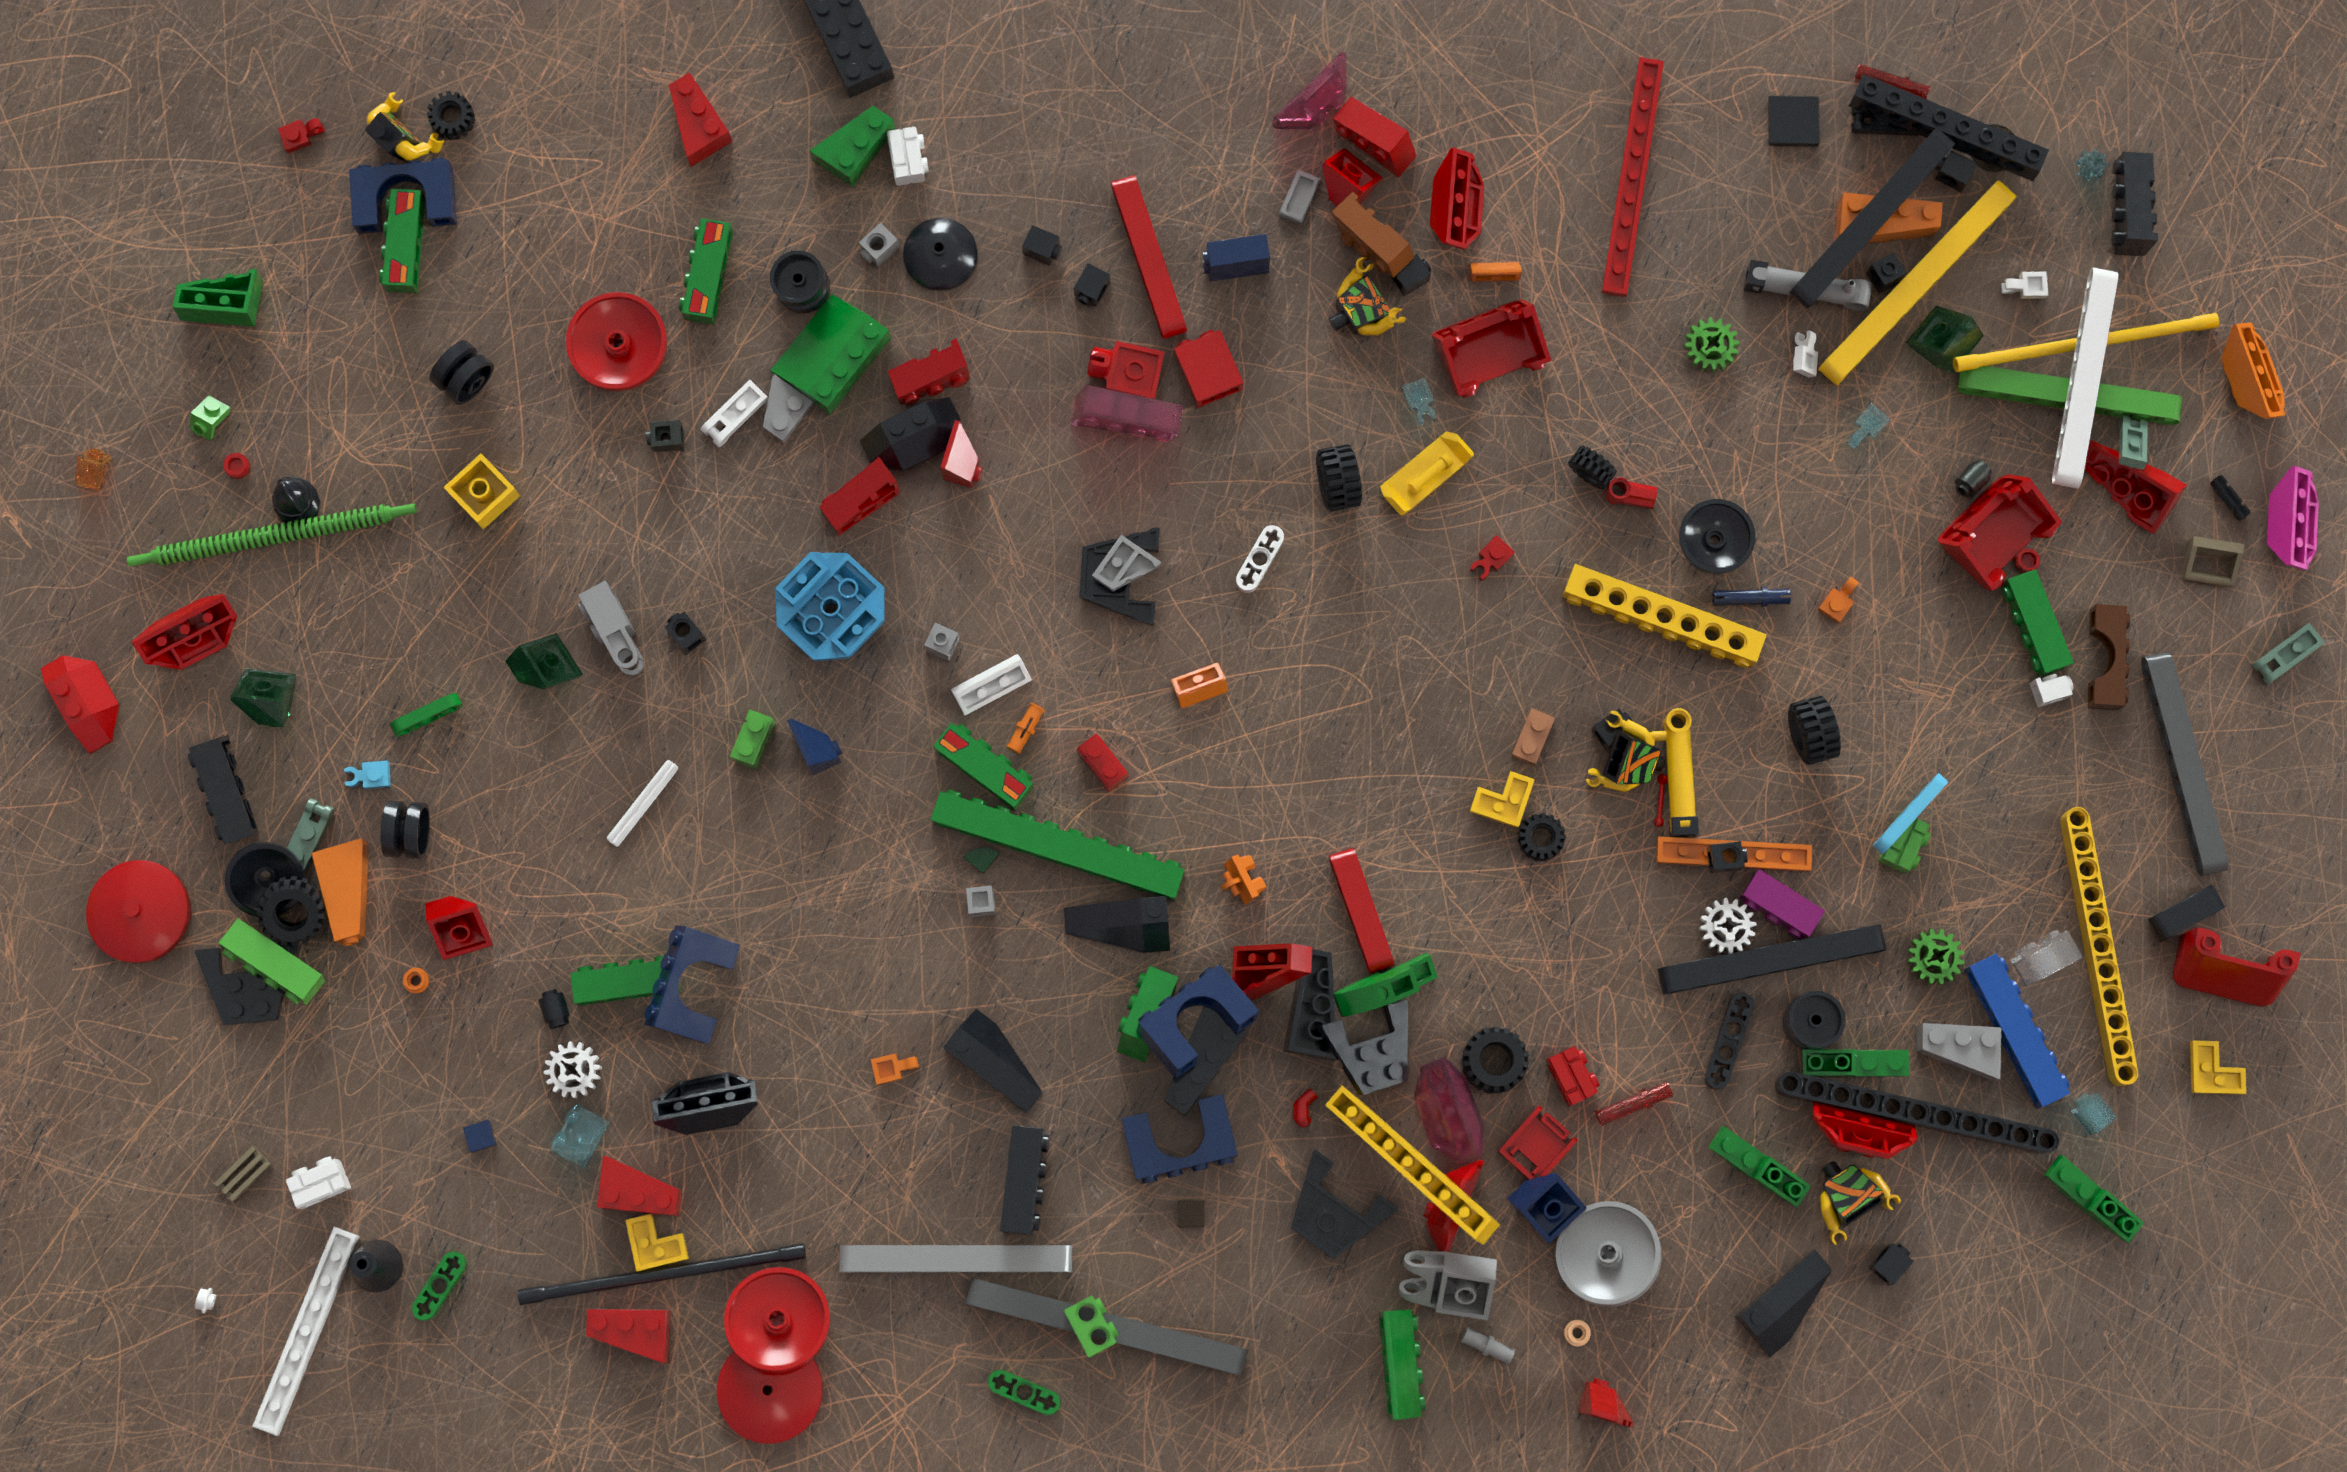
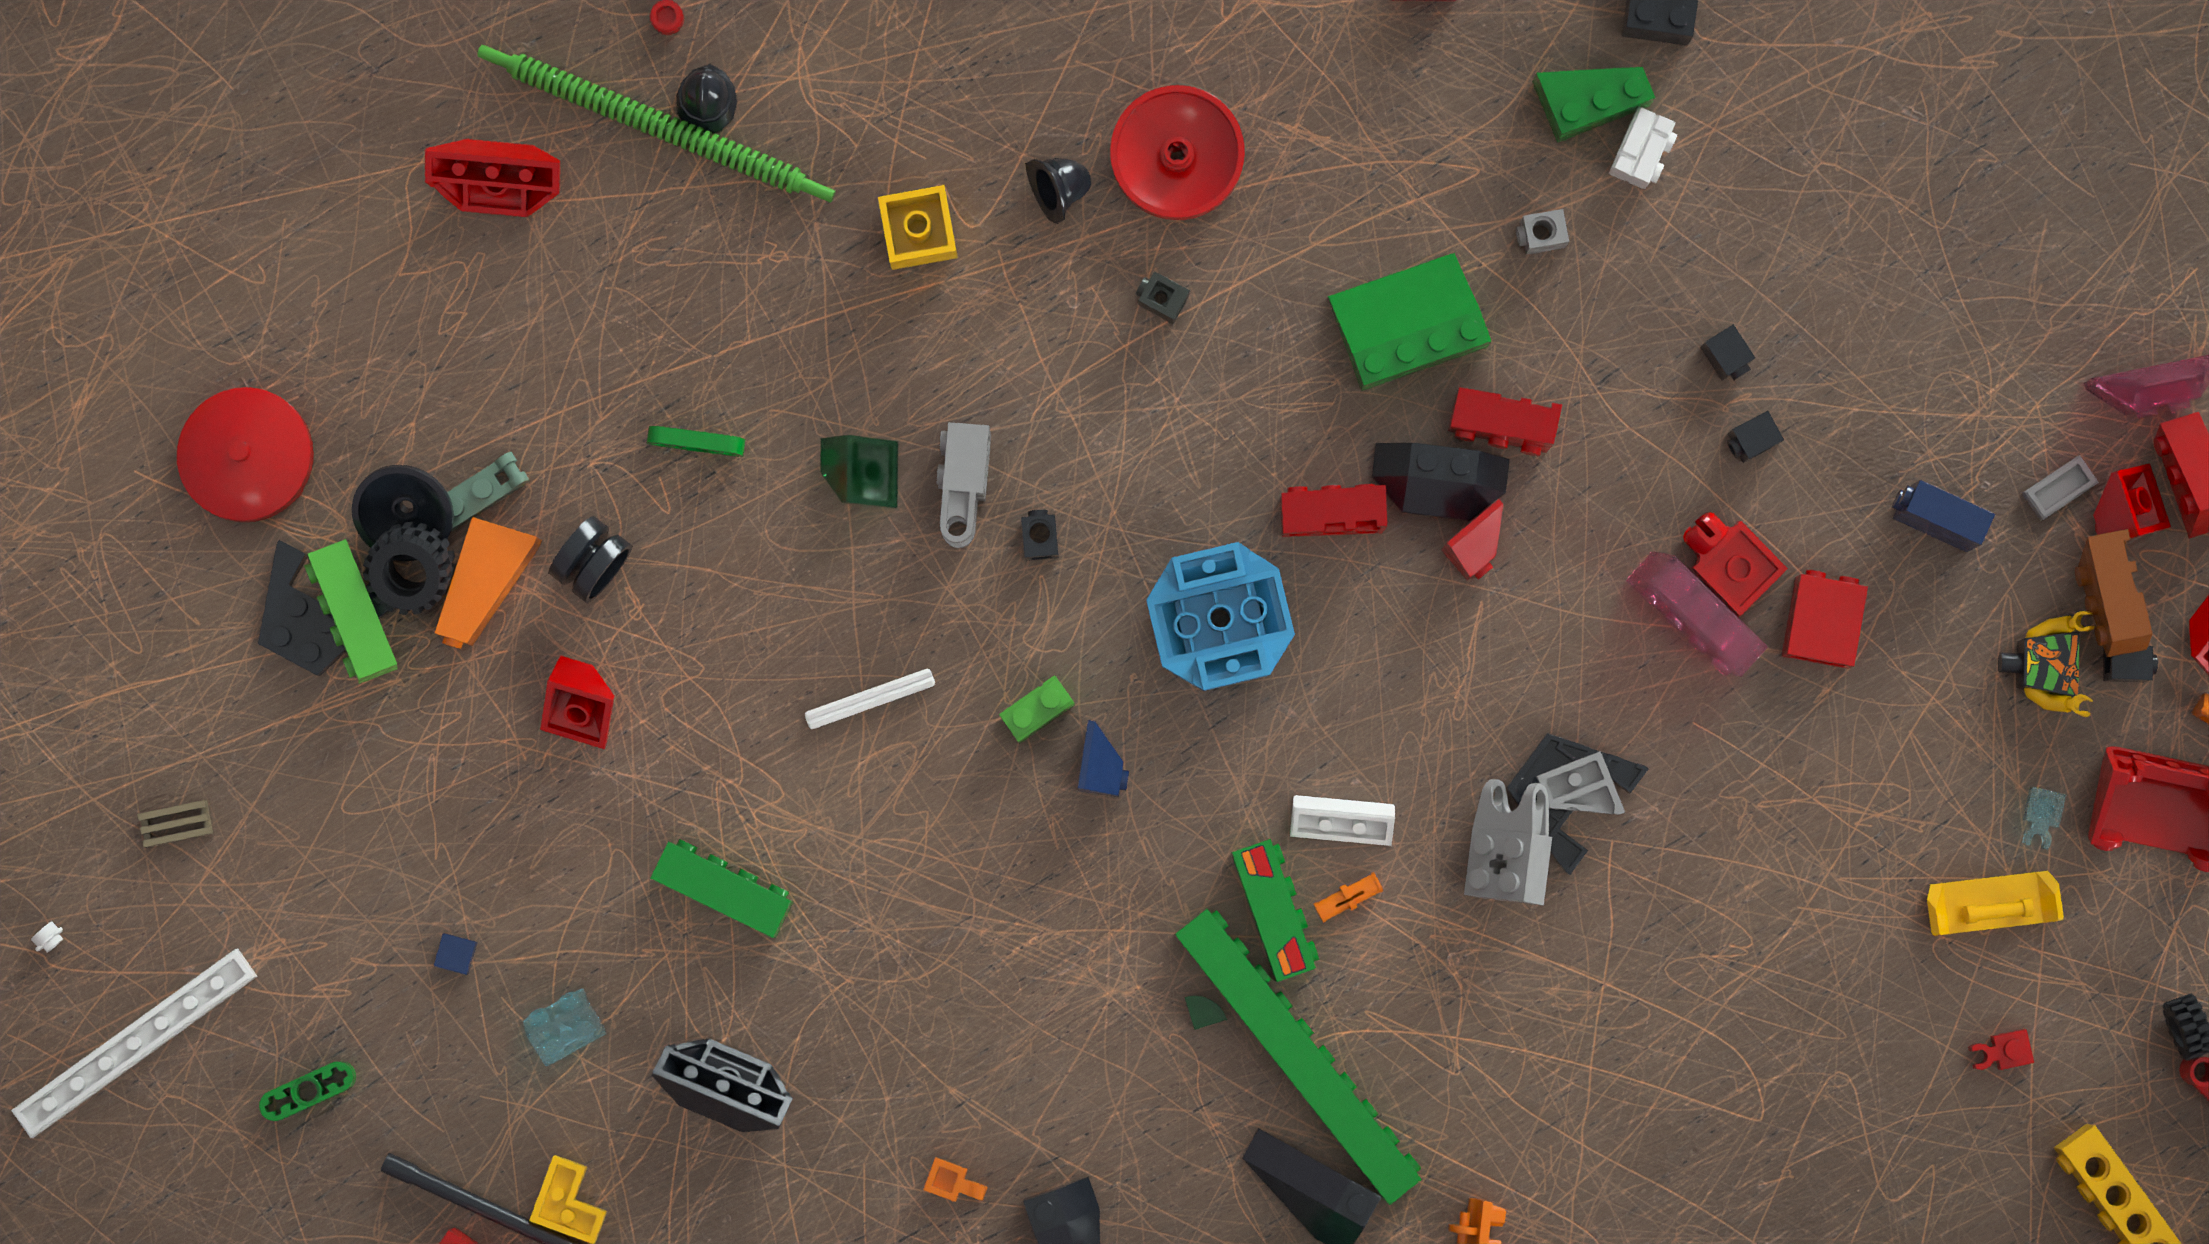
camera: 35 degrees right, 5 degrees up
(83, 700) = (332, 175): red wedge -> none
(223, 789) = (421, 380): black wedge -> none
(265, 696) = (533, 303): clear green slope -> none
(317, 1183) = (248, 890): white brick -> none
(372, 775) = (594, 470): medium azure plate -> none
(376, 1265) = (254, 1022): black cone -> none
(408, 977) = (485, 733): orange plate -> none
(461, 372) = (981, 76): black wheel -> none
(553, 410) = (1057, 185): none -> black piece
(554, 1009) = (625, 867): black brick -> none
(564, 1078) = (598, 933): white gear -> none
(634, 1191) = (584, 1131): red wedge -> none
(666, 1007) = (809, 902): dark blue arch -> none
(707, 271) = (1330, 135): green brick -> none
(734, 413) = (1256, 320): white plate -> none
(784, 409) = (1315, 351): light grey wing -> none
(800, 281) = (1427, 237): black wheel -> none
(942, 641) = (1319, 737): light grey brick -> none
(945, 268) = (1593, 304): black dish -> none
(980, 901) = (1171, 1063): light grey brick -> none
(1102, 762) = (1409, 995): red brick -> none
(1104, 630) = (1510, 847): none -> light grey brick
(1148, 257) = (1841, 446): red beam -> none
(1199, 685) = (1575, 976): orange slope -> none
(1263, 539) = (1765, 875): white beam -> none
(1339, 477) = (1891, 849): black tyre -> none

